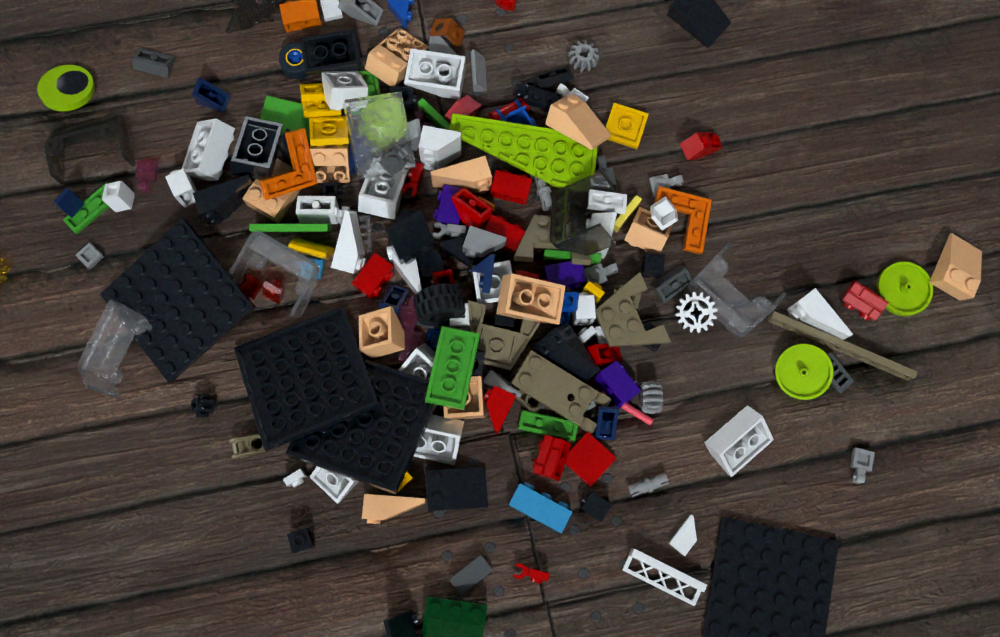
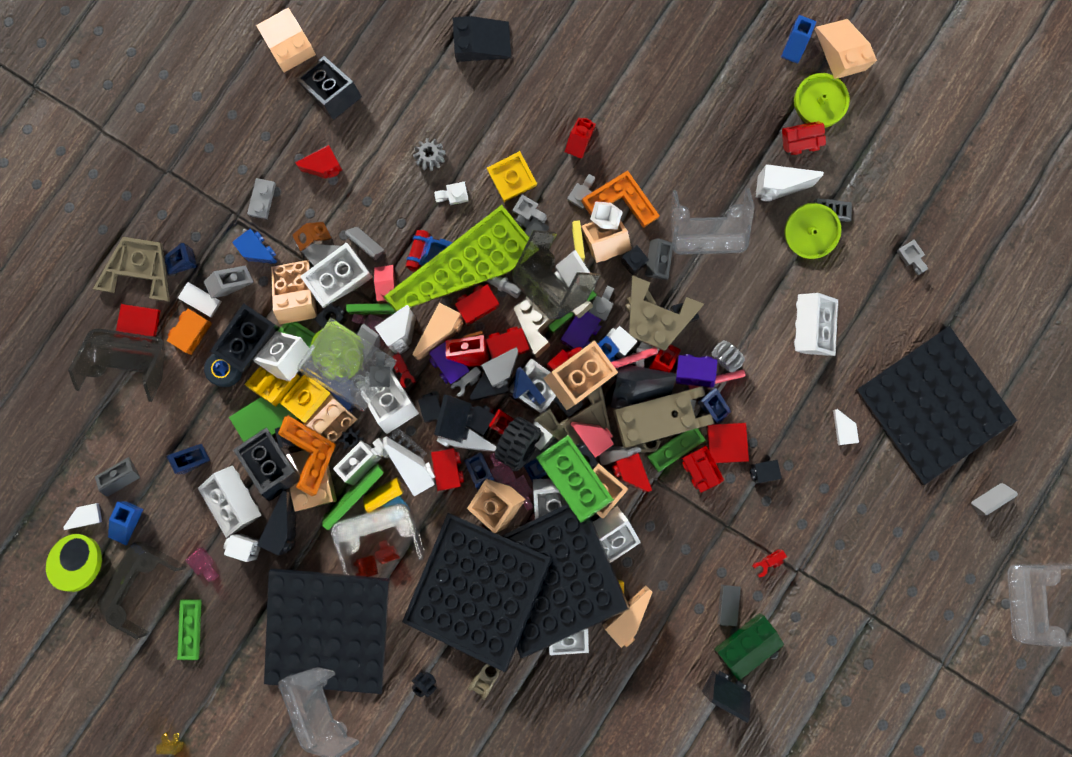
camera: 40 degrees left, 5 degrees up
(68, 203) = (169, 644): dark blue slope -> none
(89, 255) = (225, 664): light grey tile -> none
(106, 66) = (84, 516): none -> white tile
(118, 196) = (200, 601): white panel -> none
(126, 93) = (123, 521): none -> blue slope
(295, 478) = (542, 666): white plate -> none
(301, 540) = (591, 704): black brick -> none
(456, 489) = (660, 558): black slope -> none
(496, 355) = (594, 437): none -> coral slope
(536, 96) = (430, 218): black hinge -> none
(540, 507) = (729, 510): dark azure brick -> none
(546, 79) = (421, 197): black hinge -> none
(577, 121) = (477, 209): light nougat slope -> none
(582, 329) = (635, 357): none -> coral bar
(594, 289) = (614, 321): yellow plate -> none
(607, 201) = (557, 247): white plate -> none
(614, 159) = (528, 209): none -> light grey plate
(648, 484) = (786, 419): light grey pin -> none
(671, 572) = (858, 464): white fence -> none
(688, 312) = (702, 257): white gear -> none
(841, 346) = (821, 185): dark tan tile -> none
(930, 228) = (798, 39): none -> blue slope

